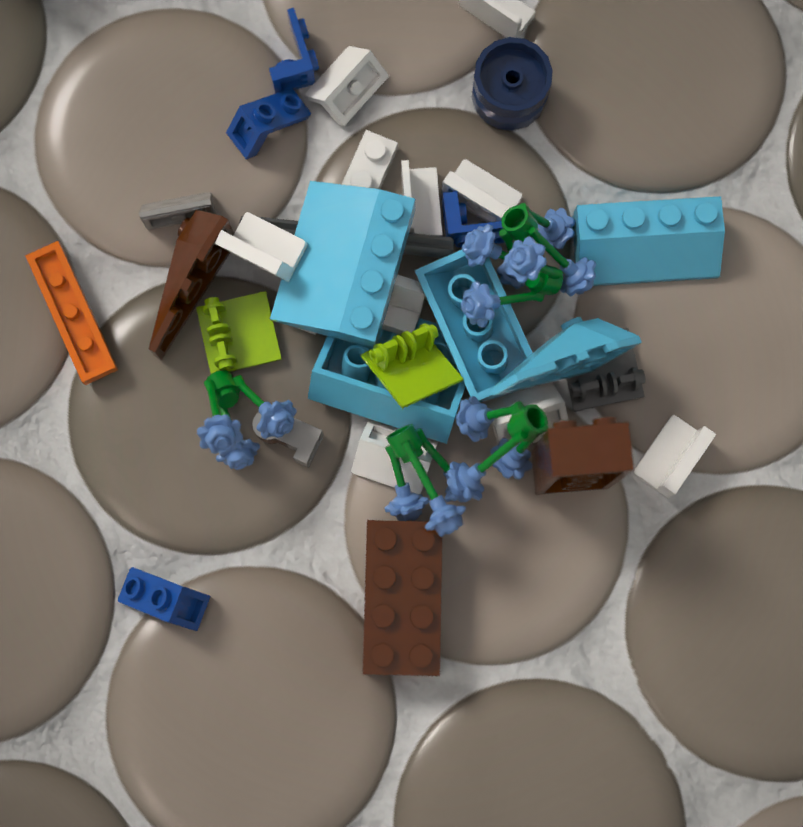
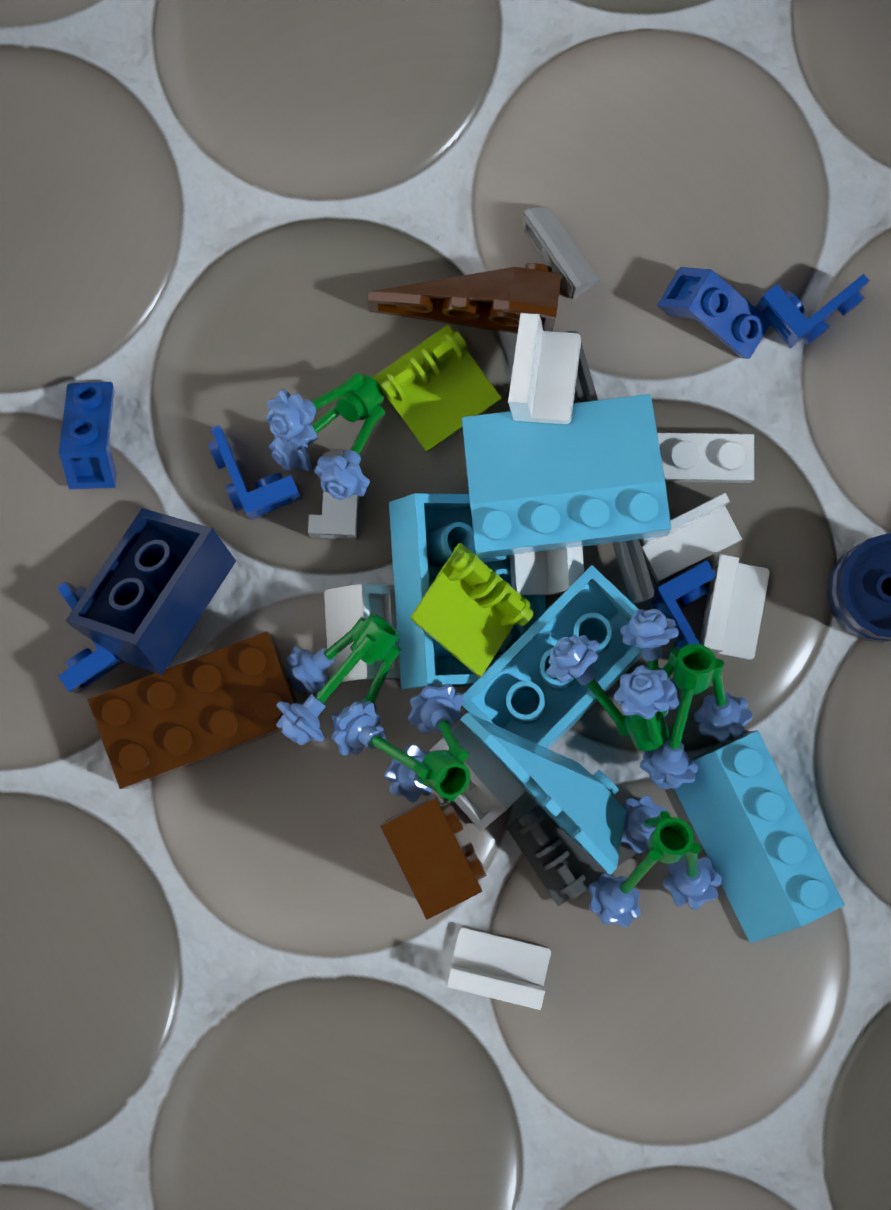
camera: 70 degrees right, 5 degrees up
(71, 313) = (380, 182): orange plate -> none
(263, 479) = (271, 491): none -> blue bracket
(300, 594) = (152, 589): none -> dark blue slope
(335, 668) = (85, 666): none -> blue bracket
(348, 83) = (804, 387): white panel -> none
(649, 295) = (668, 842): none -> medium blue plant

